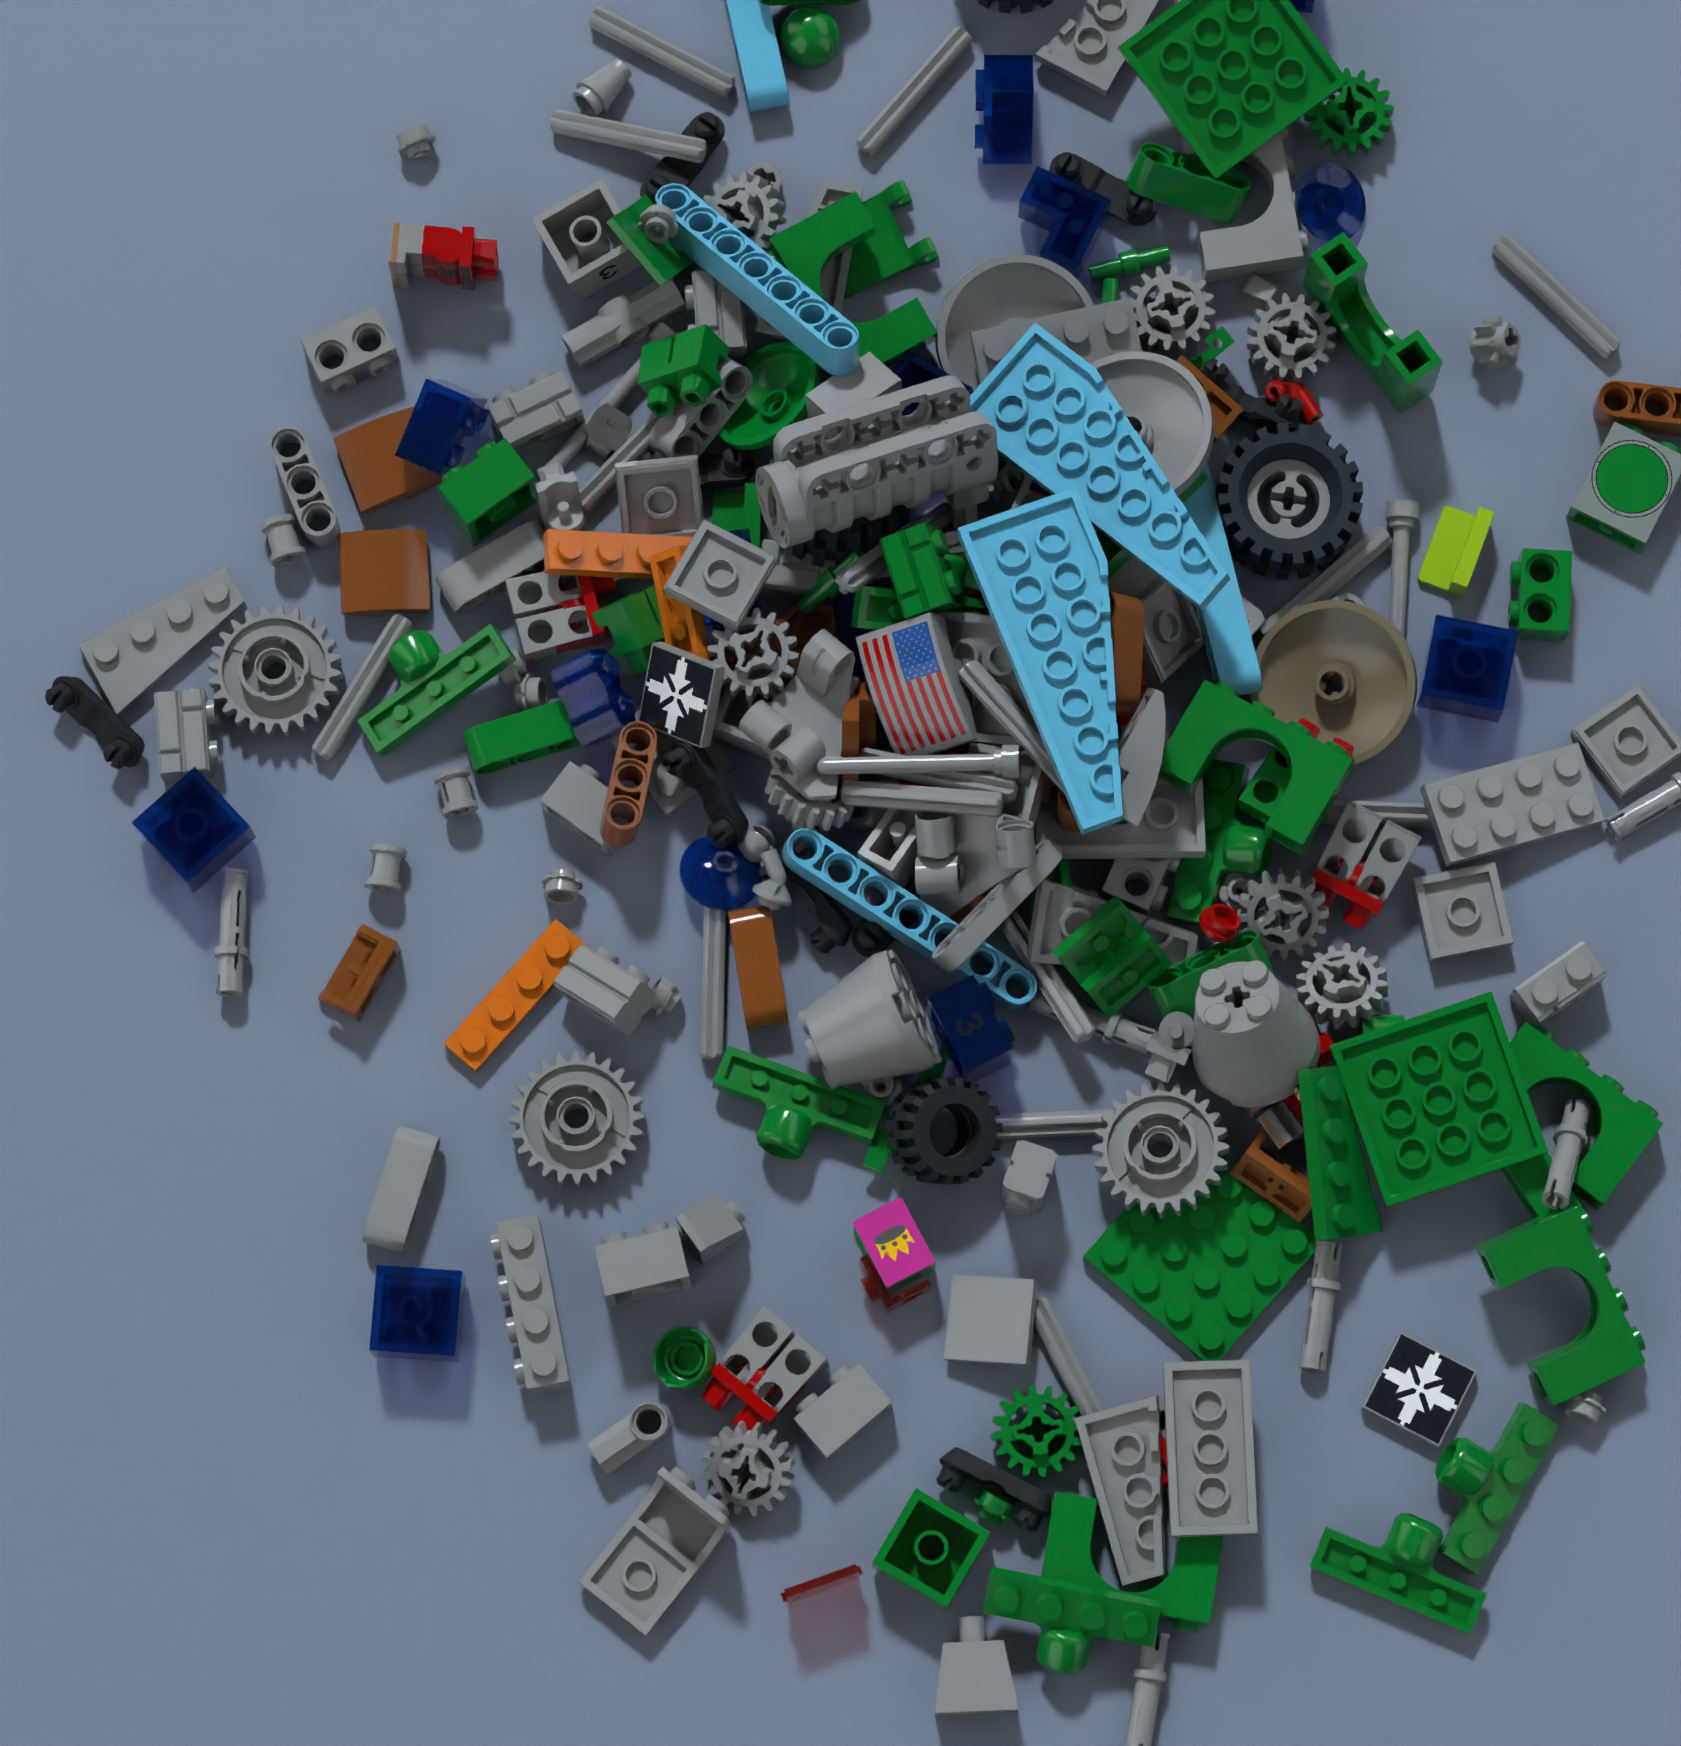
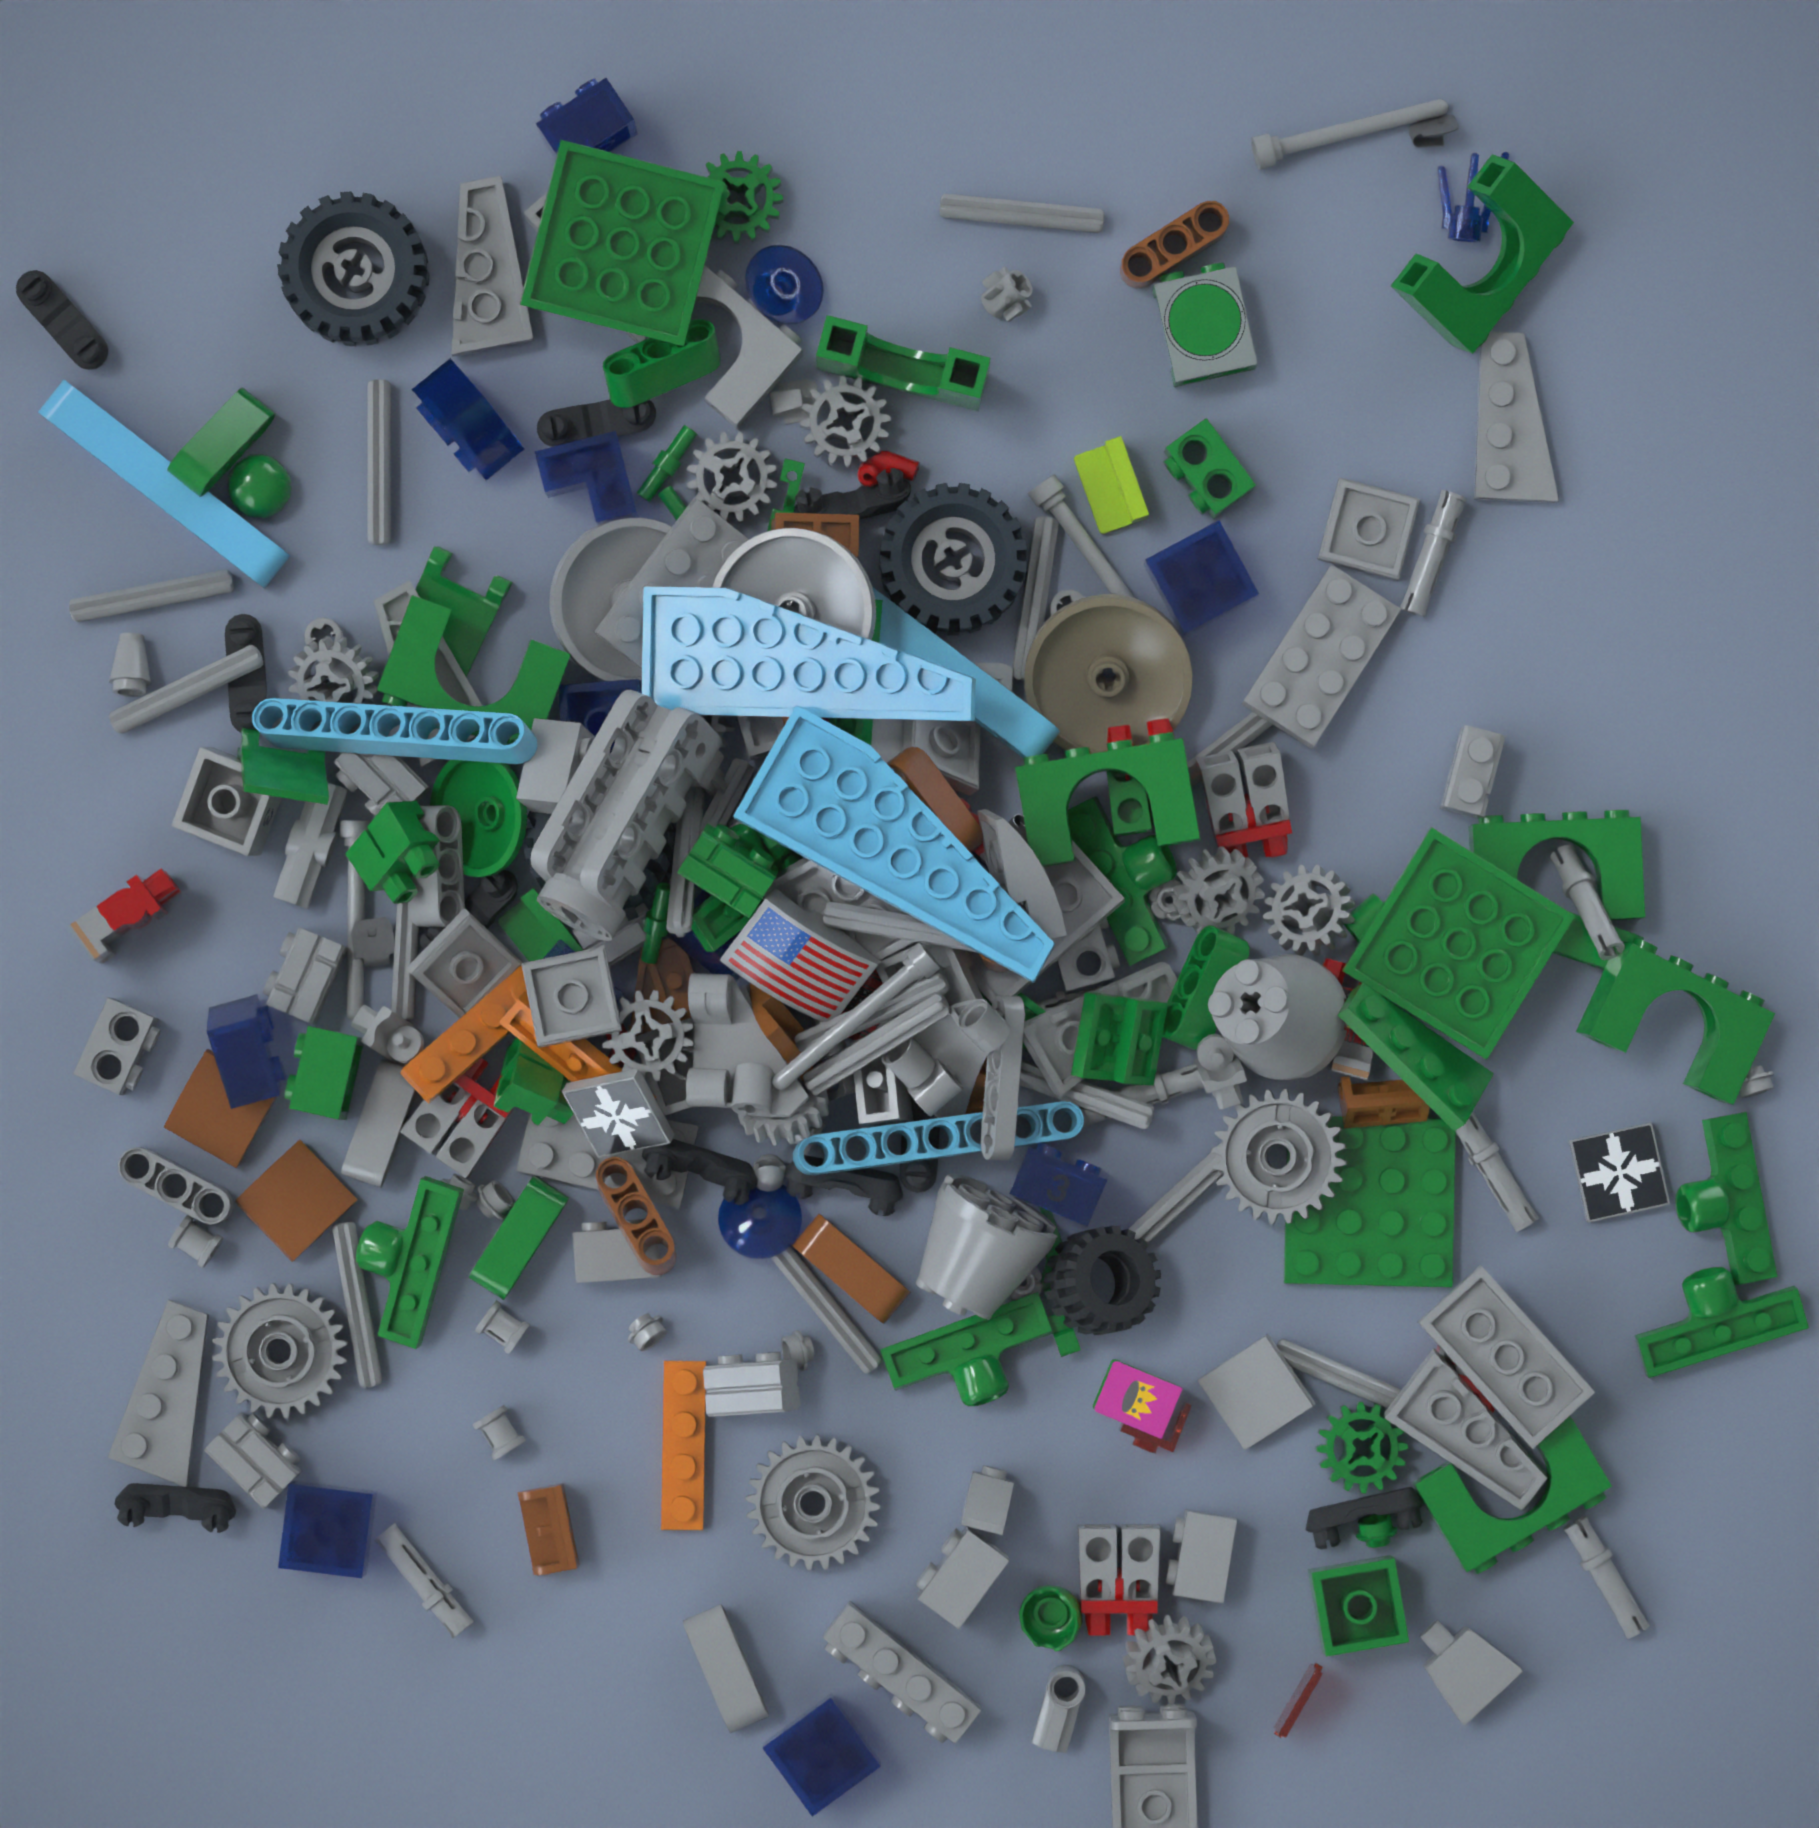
camera: 45 degrees left, 10 degrees up
(415, 142) = (21, 834): light grey plate -> none
(594, 696) = (549, 1168): clear blue brick -> none
(661, 216) = (279, 750): light grey plate -> none
(774, 891) = (816, 1203): light grey plate -> none
(1028, 1177) = (1197, 1266): light grey brick -> none
(1070, 1615) = (1504, 1568): green plate -> none
(1220, 923) = (1178, 941): red plate -> none
(1462, 911) = (1352, 773): light grey plate -> none

